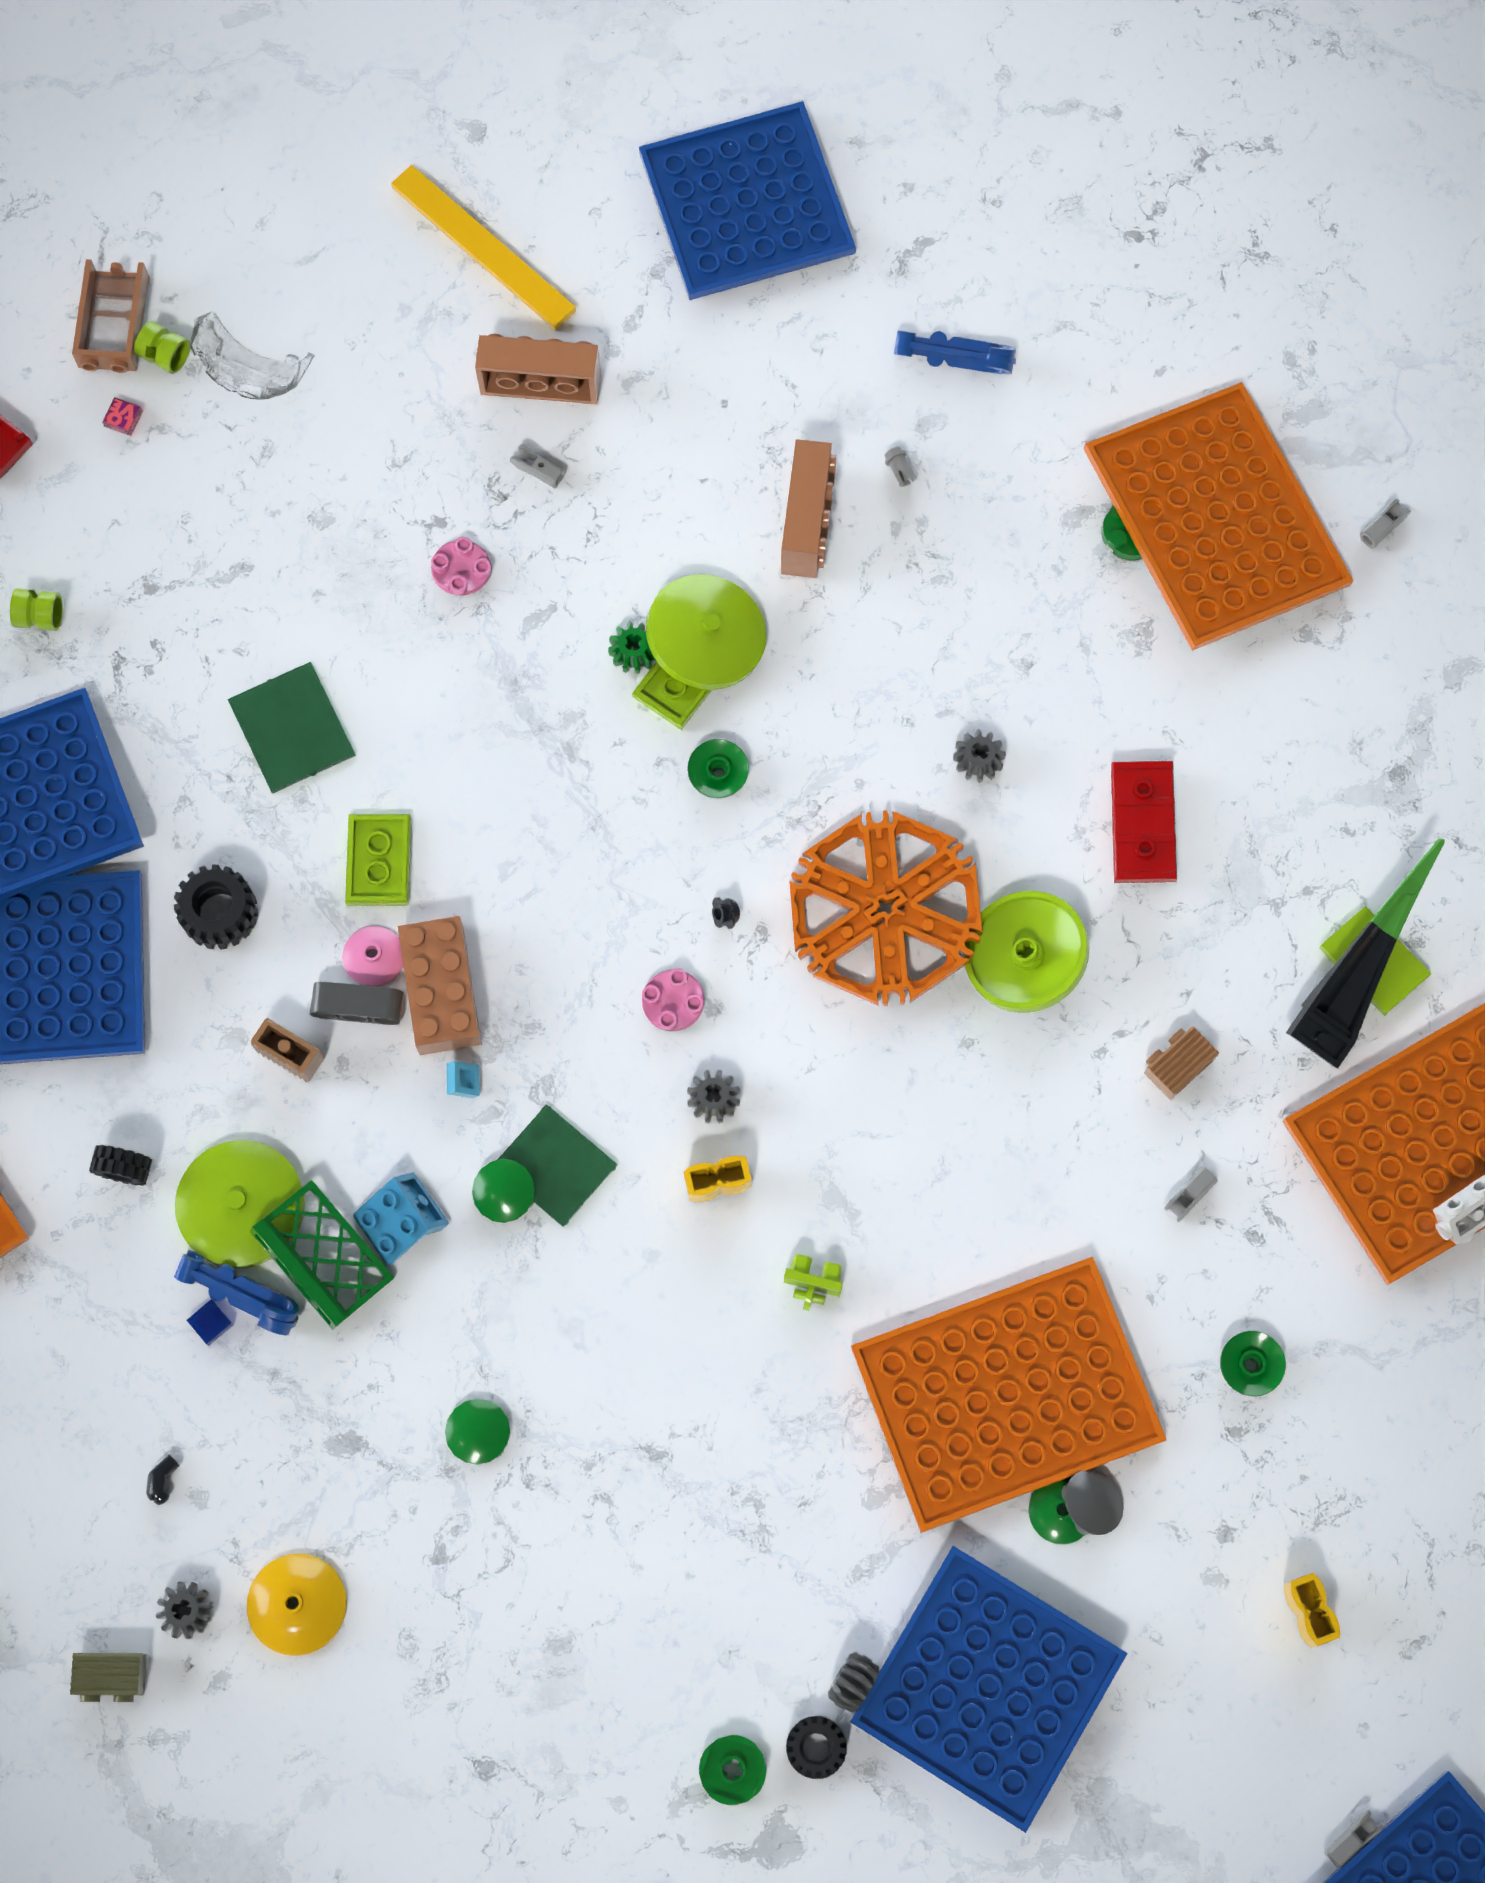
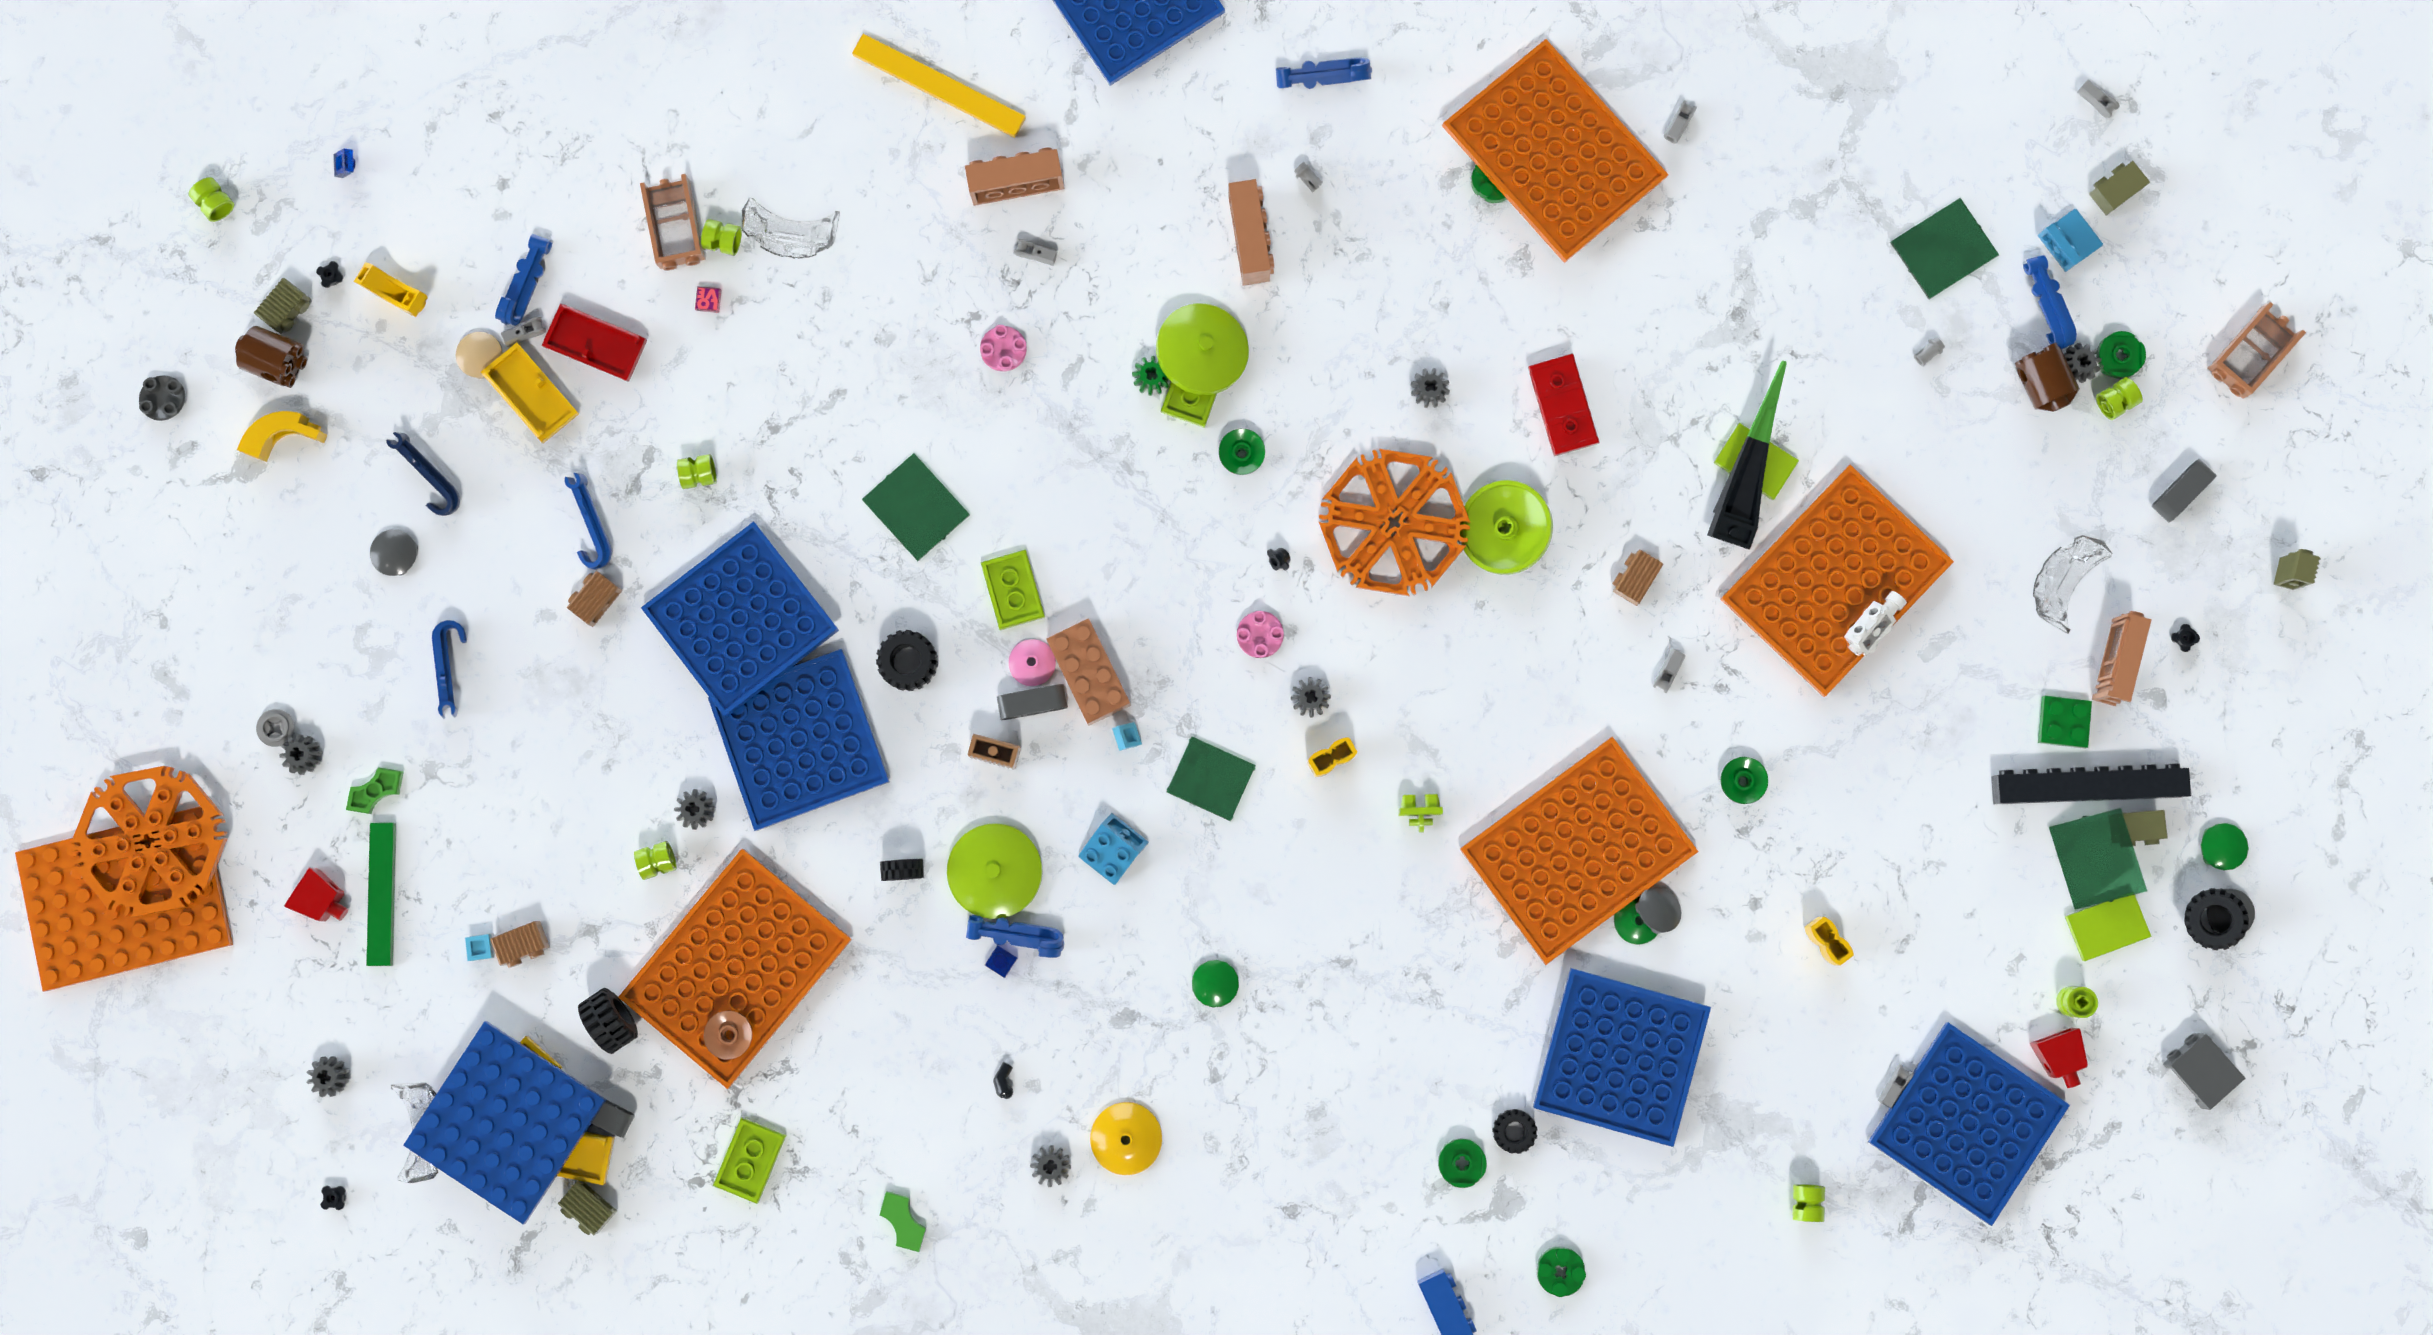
camera: 15 degrees left, 10 degrees up
(107, 1675) = (1012, 1225): olive brick -> none
(301, 1274) = (1055, 909): green fence -> none
(503, 1190) = (1181, 808): green dish -> none
(853, 1682) = (1528, 1081): dark grey gear -> none

